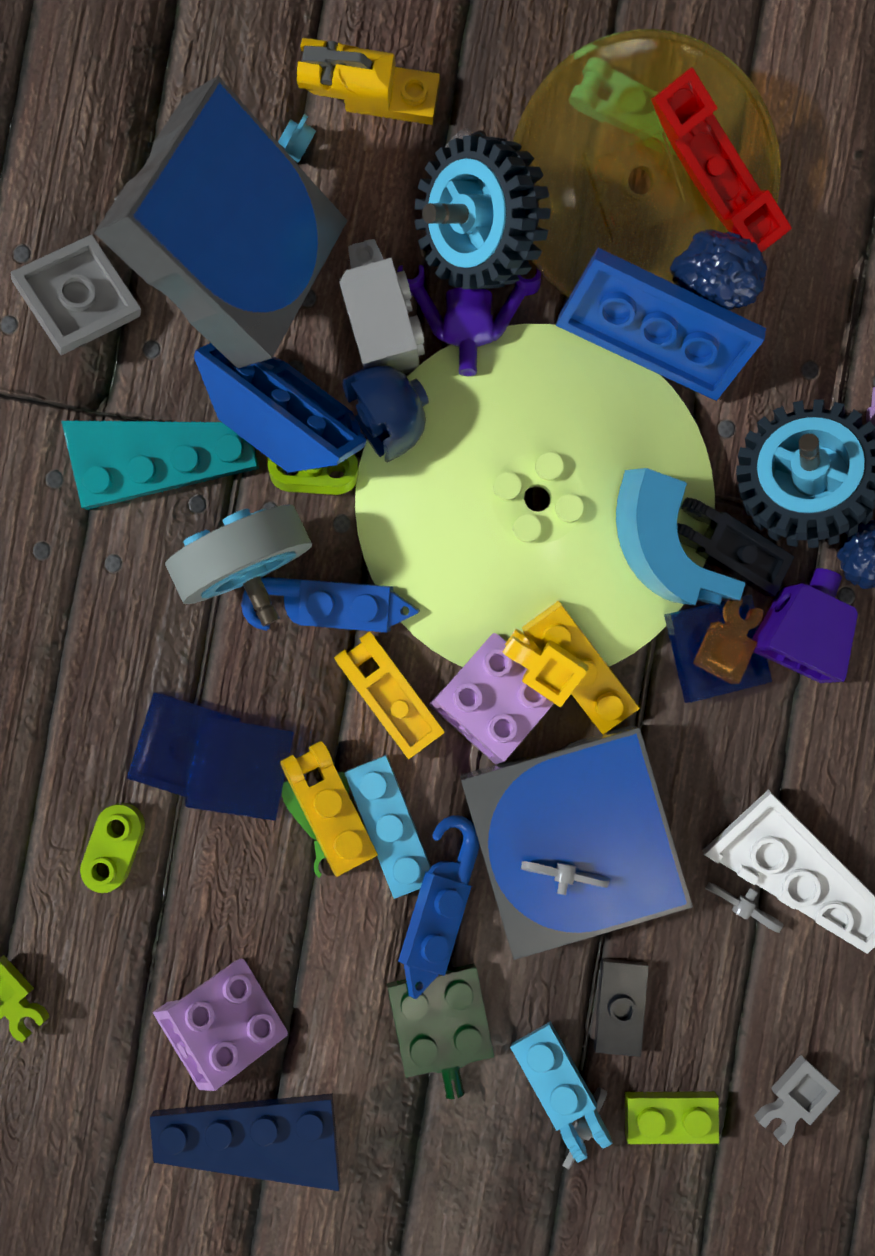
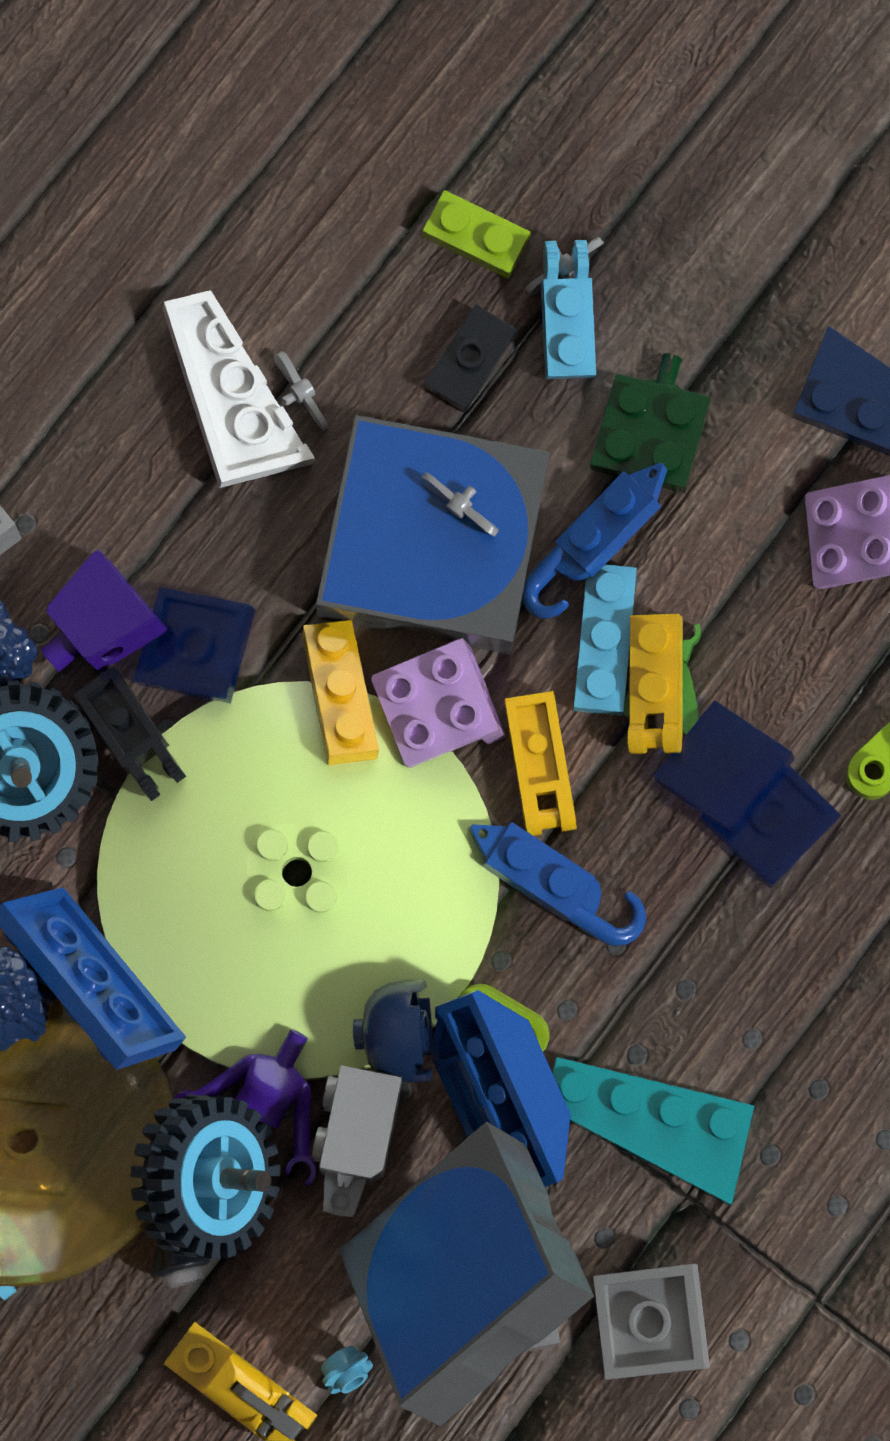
camera: 155 degrees left, 10 degrees down
(239, 557) = (616, 959): light grey wheel -> none
(550, 670) = (375, 699): yellow plate -> none
(651, 545) = (211, 778): dark azure arch -> none
(726, 646) = (189, 638): clear orange plate -> none
(801, 1094) = (343, 196): light grey plate -> none

